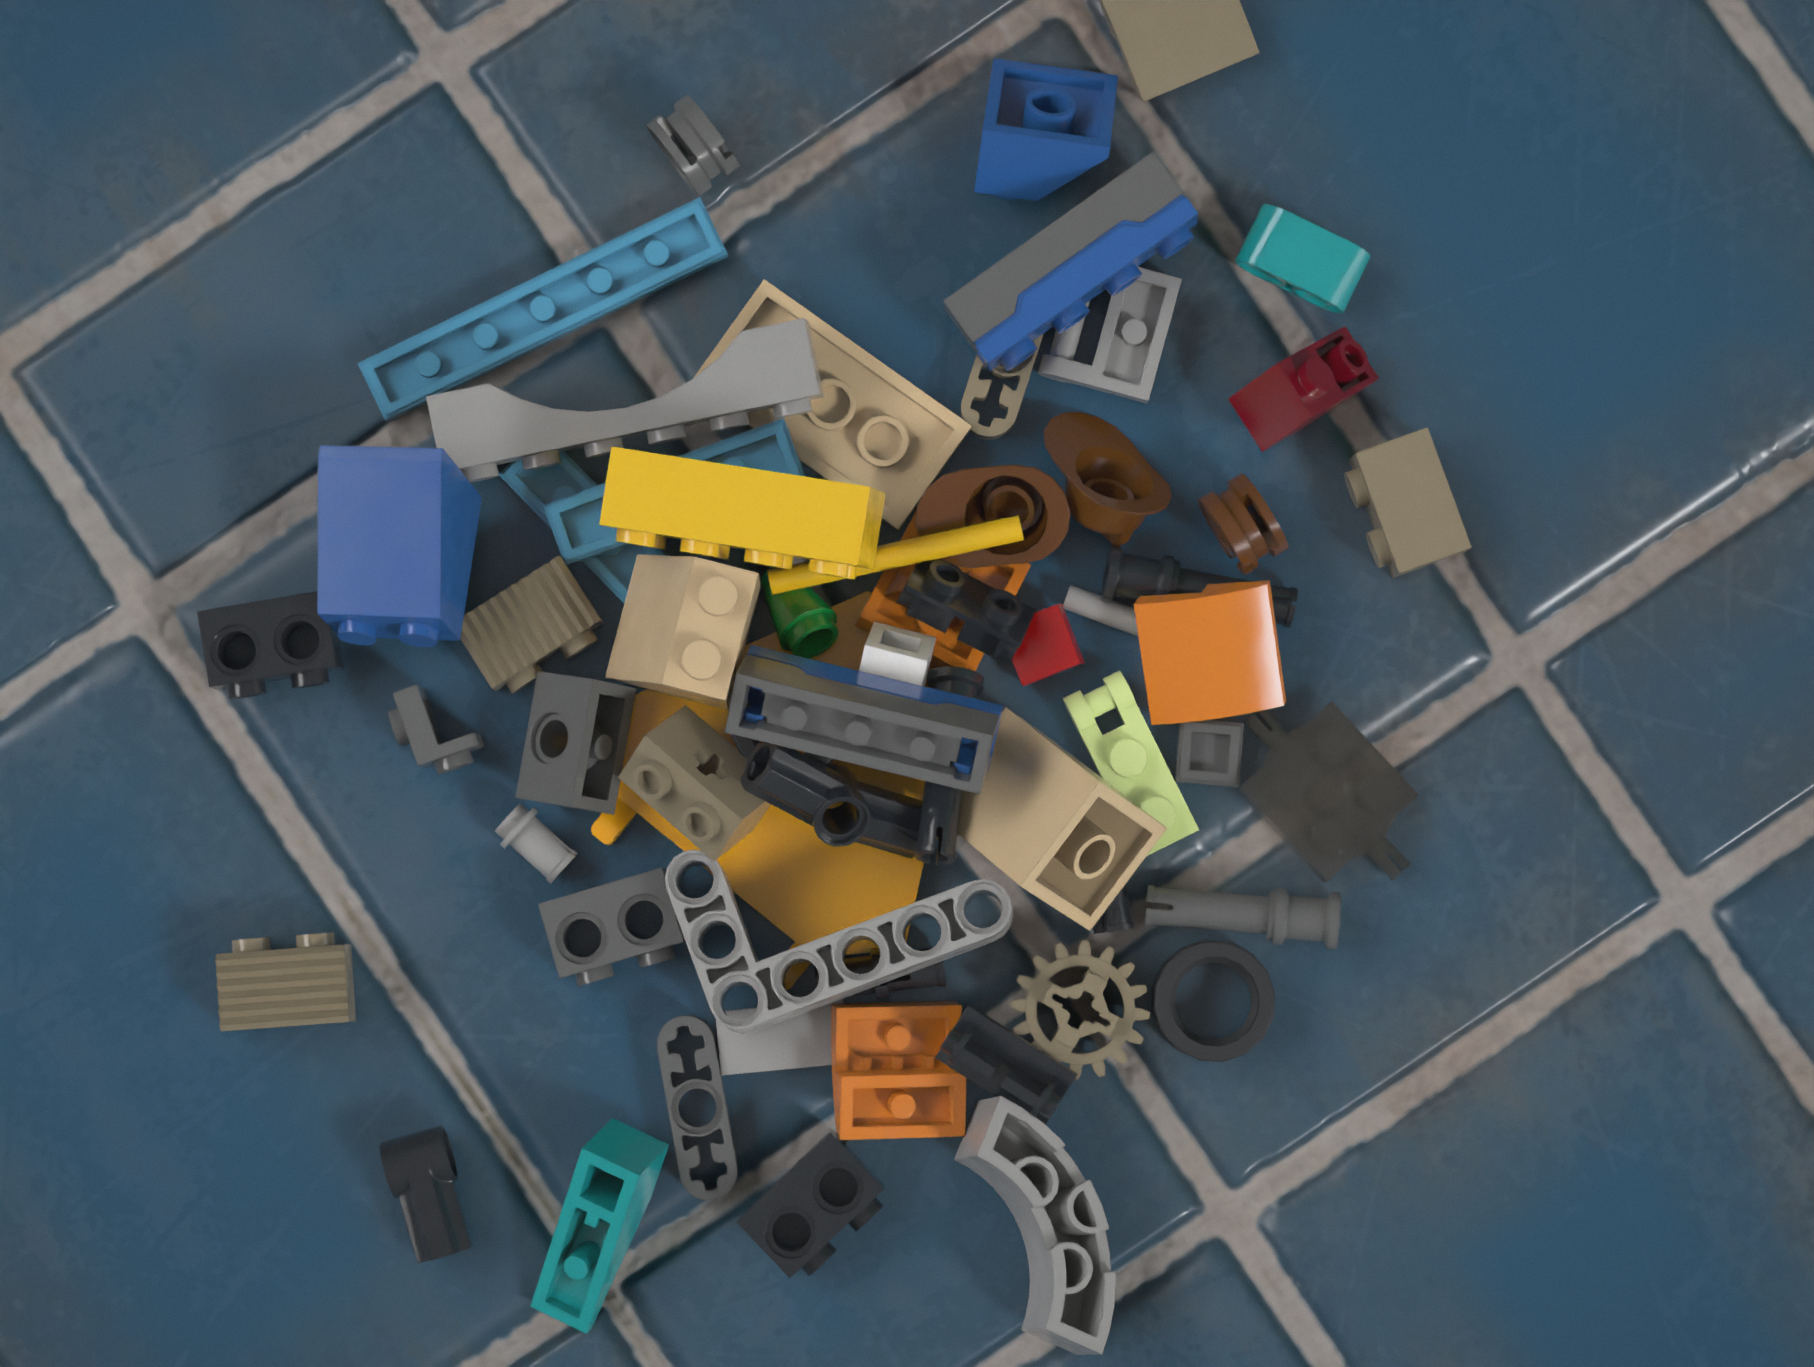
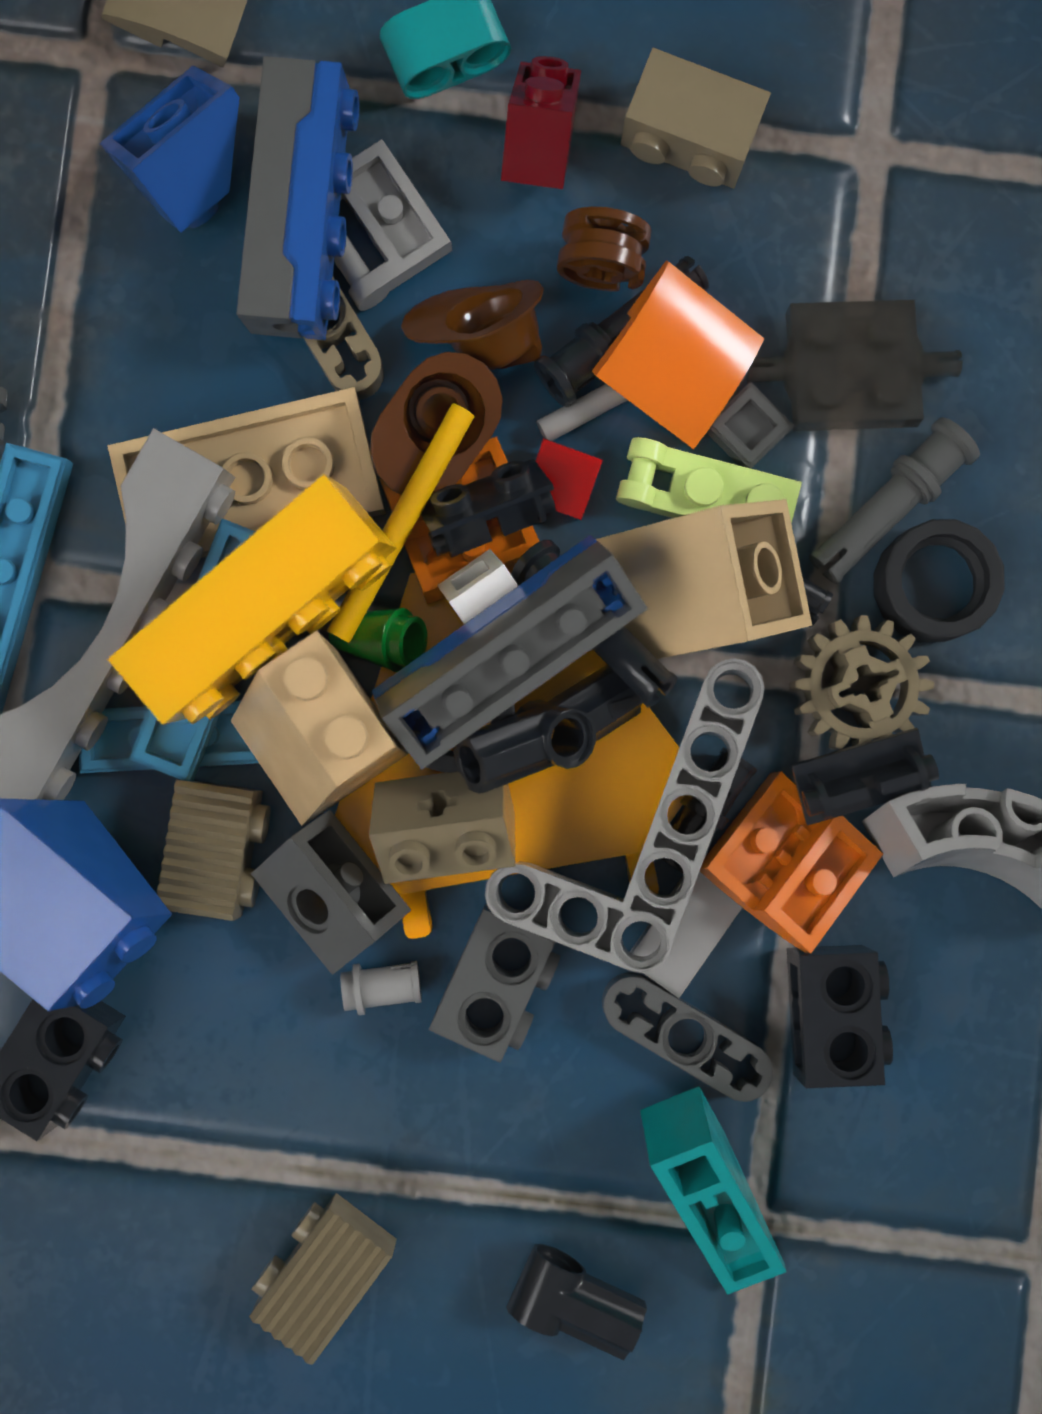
camera: 55 degrees left, 0 degrees up
(416, 725) = (216, 1001): dark grey bracket -> none

